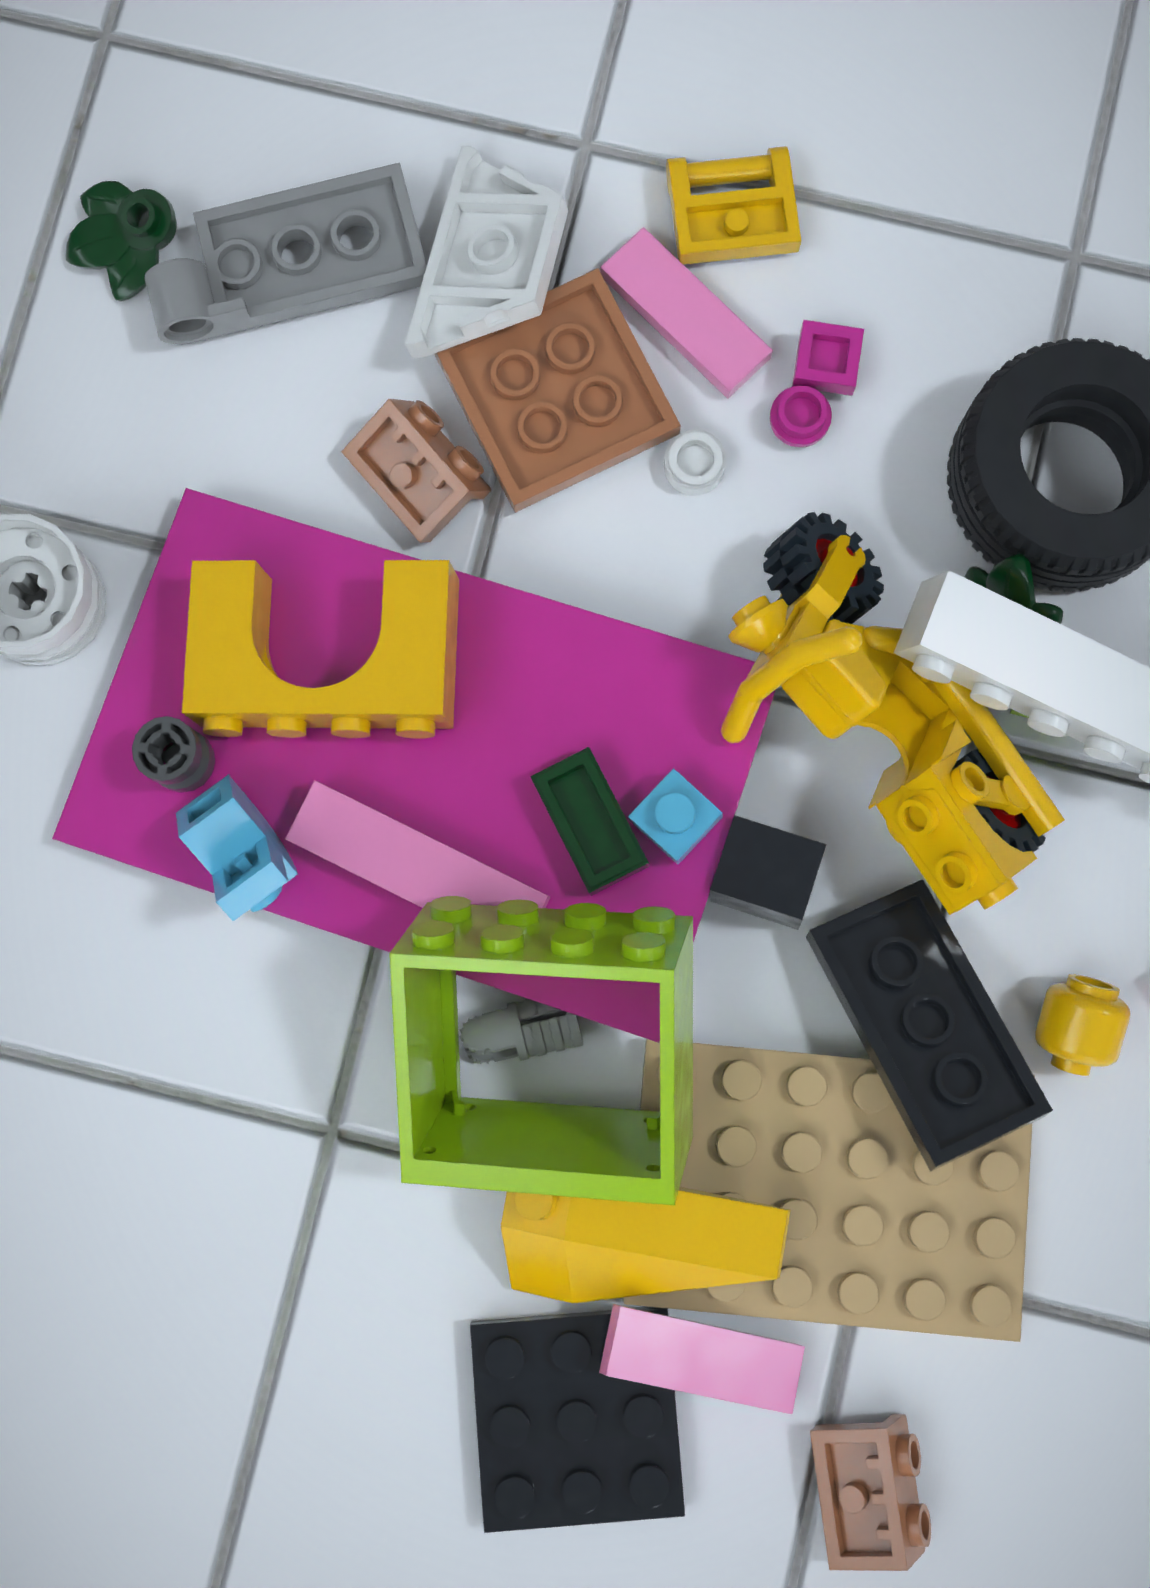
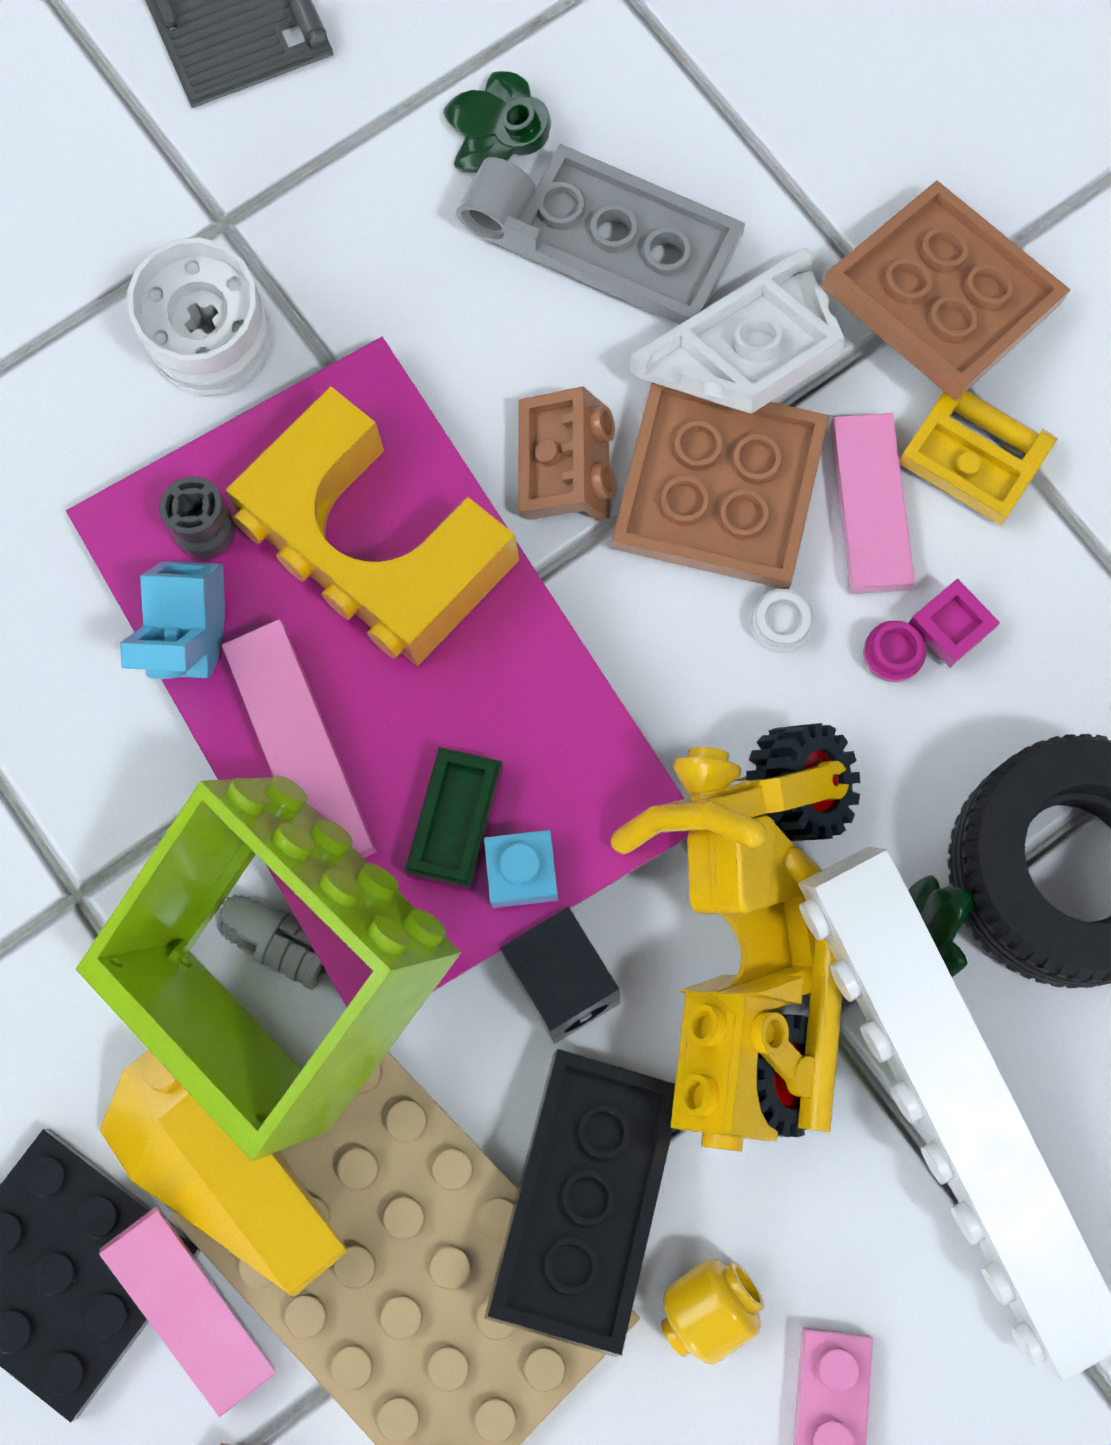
camera: 40 degrees right, 5 degrees down
(603, 93) = (945, 289): none -> nougat plate

